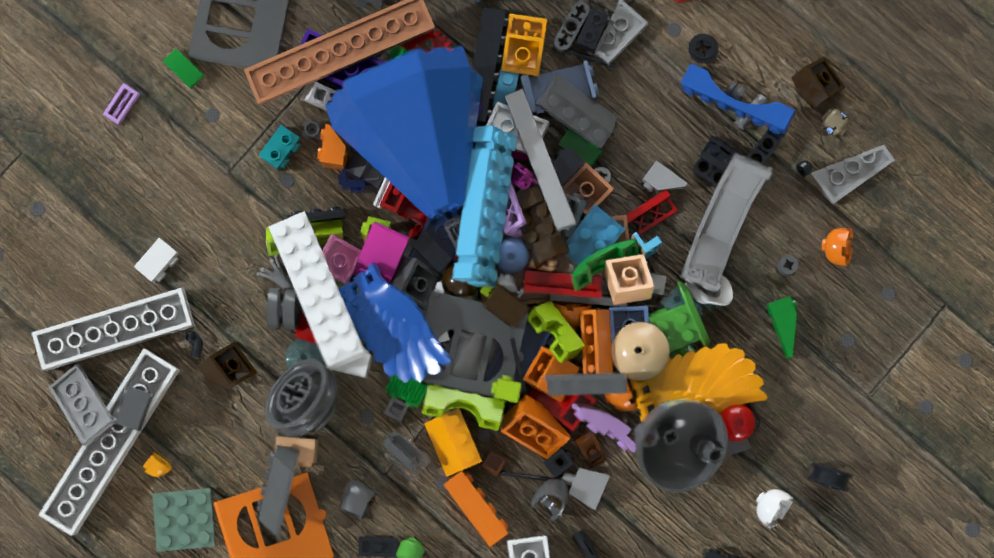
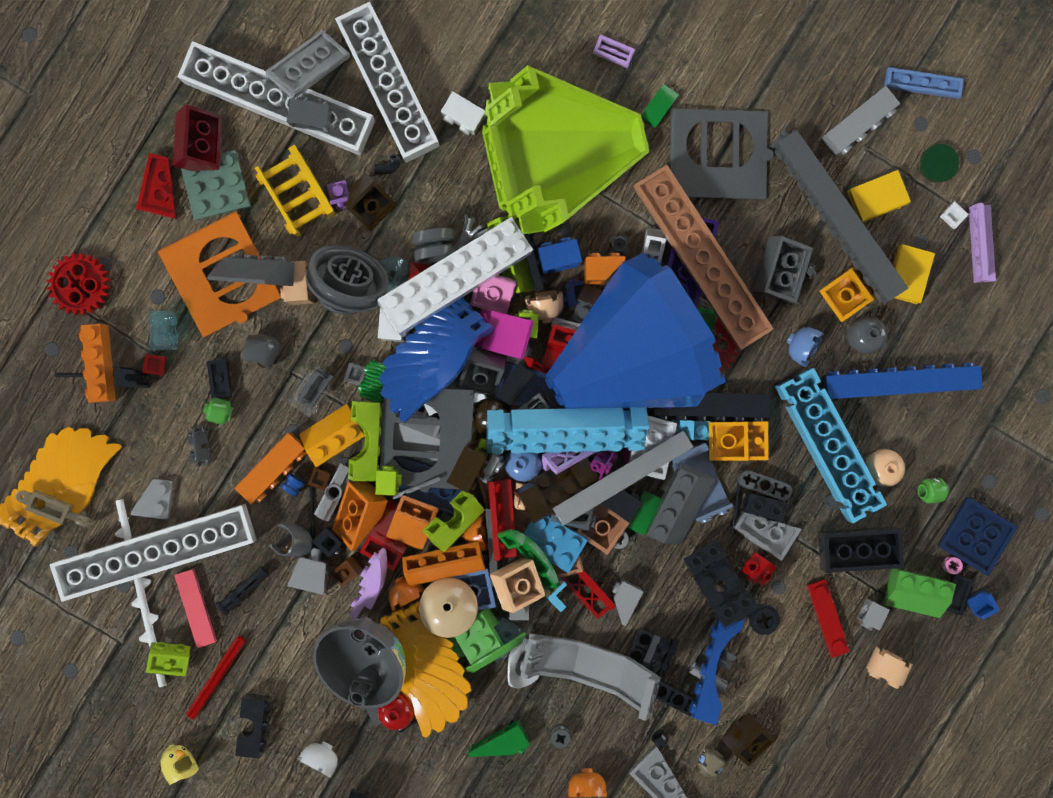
camera: 80 degrees right, 5 degrees up
(136, 528) = (197, 139): none -> dark red slope
(156, 466) = (263, 149): light orange piece -> none
(189, 427) = (304, 175): none -> yellow fence
(208, 175) = (555, 147): none -> lime piece
(215, 397) = (338, 194): none -> medium lavender bracket
(280, 148) = (596, 216): teal brick -> none
(314, 188) = (559, 256): none -> blue brick
(358, 209) = (546, 304): none -> light nougat cylinder
(496, 489) = (293, 485): none -> blue wheel
(520, 457) = (328, 502): none -> light grey piece
(587, 384) = (404, 561): dark grey fence -> none
(642, 90) = (708, 568): none -> black plate
(652, 45) = (758, 569): none -> red brick

